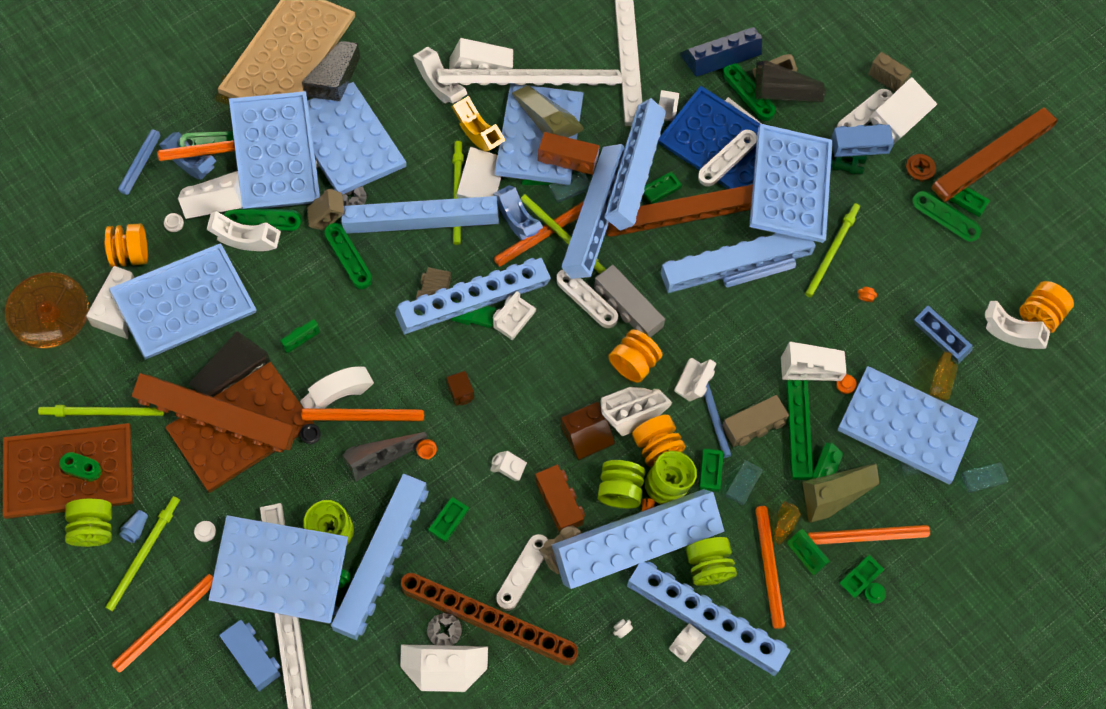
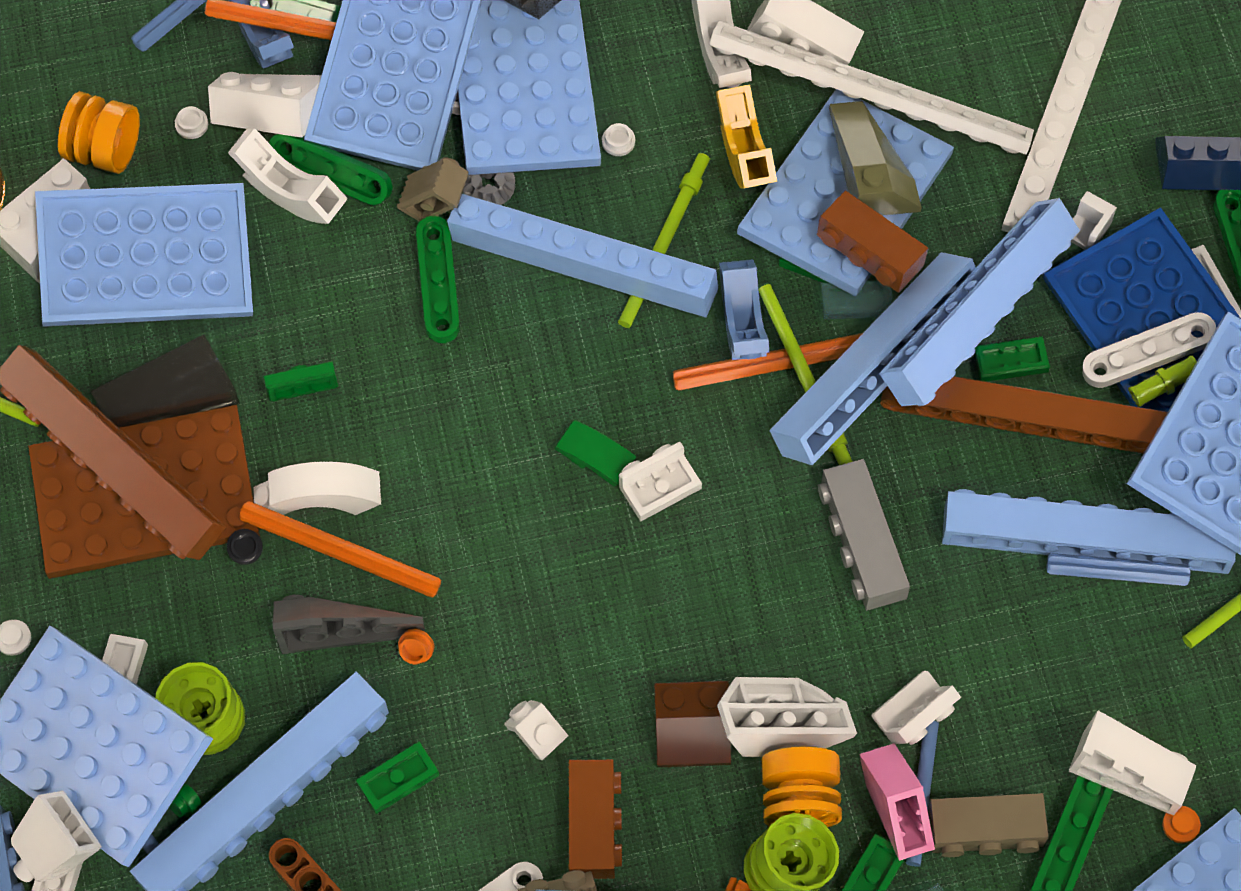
camera: 30 degrees right, 0 degrees up
(282, 626) = (51, 839): none -> white torso
(409, 149) = (618, 140): none -> white plate
(410, 321) = (481, 429): light blue brick -> none
(432, 281) = (549, 388): dark tan brick -> none
(460, 388) = (516, 568): reddish brown brick -> none
(479, 175) = (710, 225): white tile -> none
(588, 300) = (798, 504): white plate -> none
(621, 484) = (703, 837): lime wheel -> none
(635, 356) = (834, 627): light orange wheel -> none
(708, 426) = (898, 800): none -> bright pink slope
(742, 170) = (1163, 382): none -> lime pin

